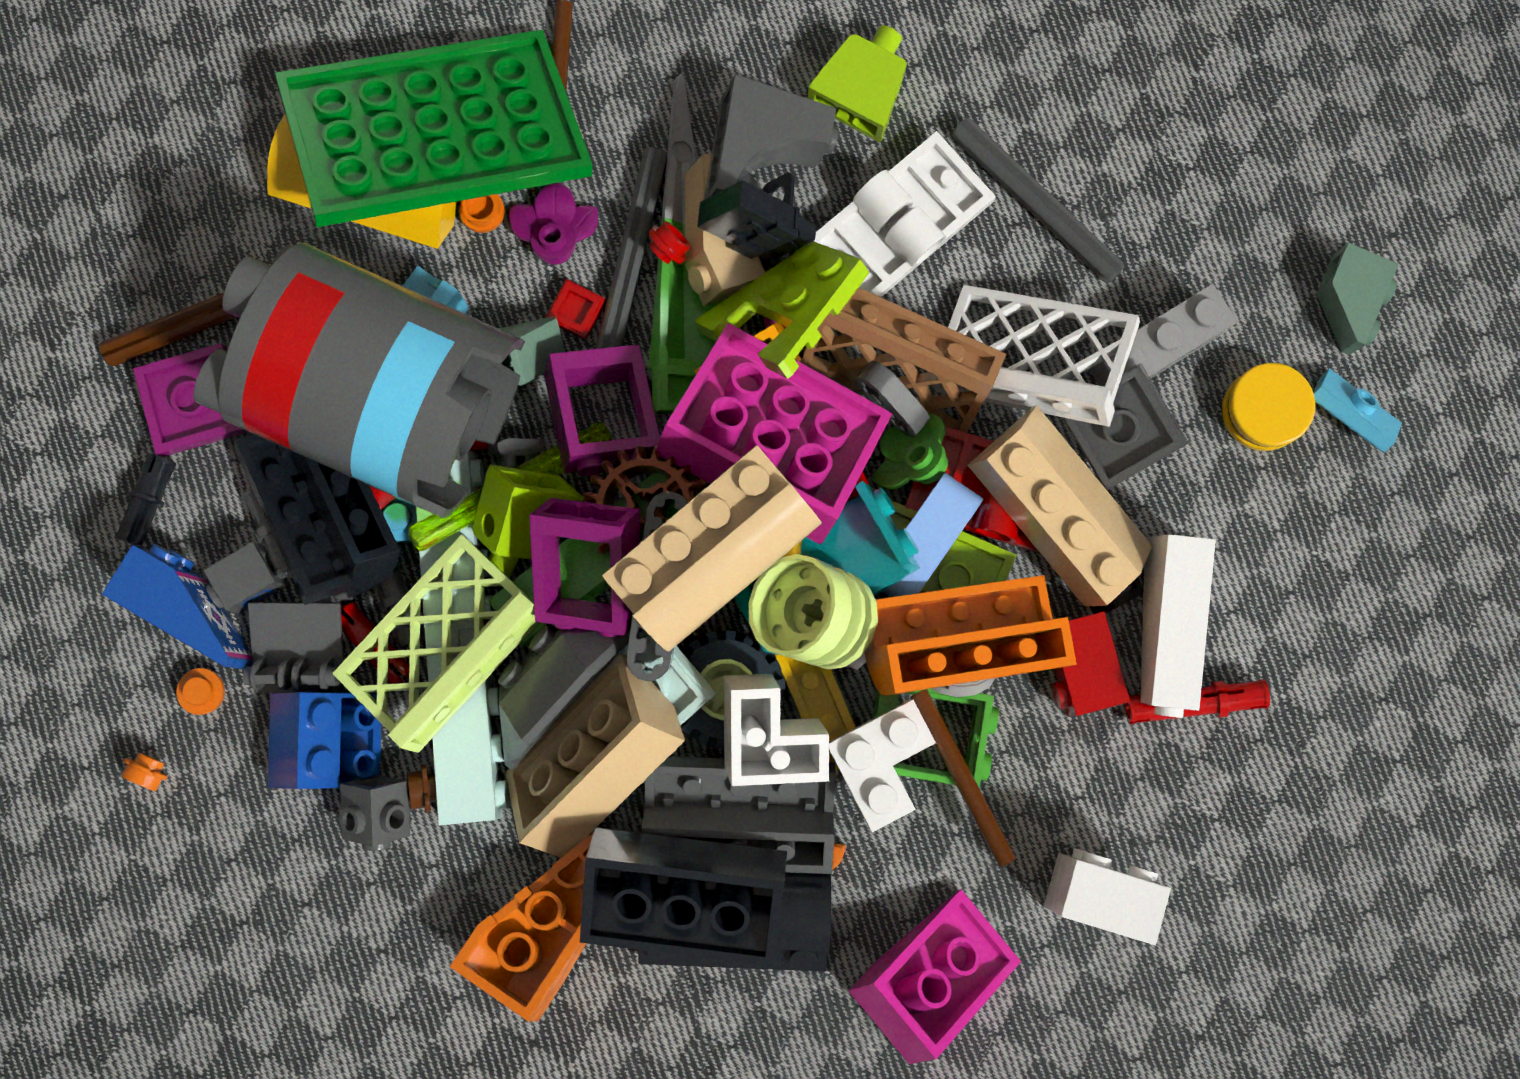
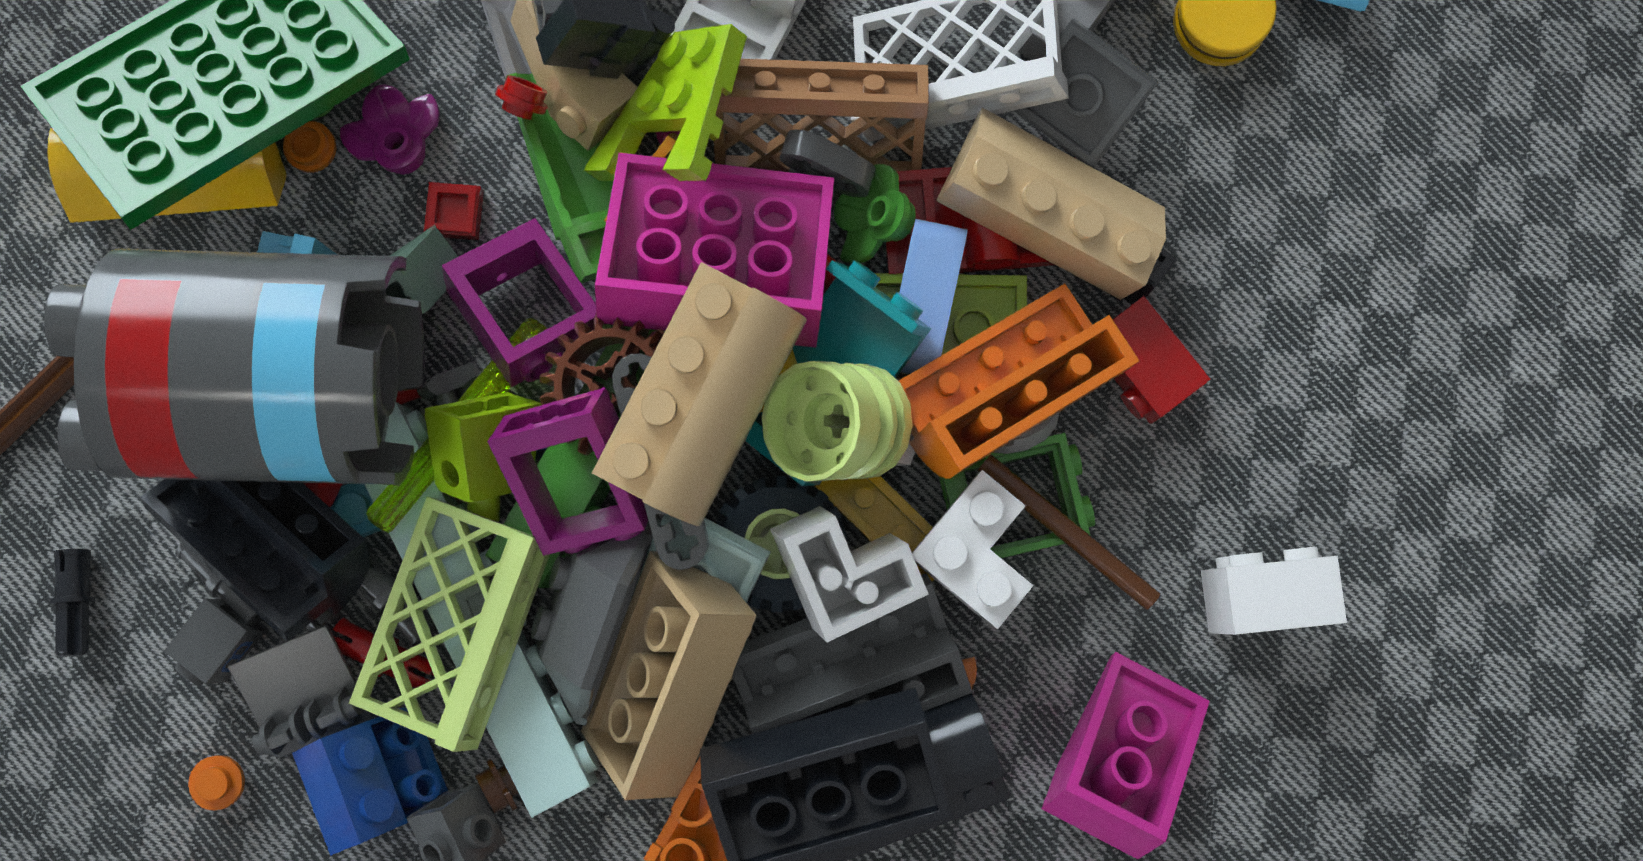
camera: 15 degrees left, 0 degrees up
(169, 405) = (66, 500): magenta plate -> none
(175, 599) = (146, 695): blue slope -> none
(632, 248) = (487, 120): dark grey axle -> none
(1175, 622) = (1223, 274): white slope -> none
(1215, 699) = (1297, 341): red pin -> none

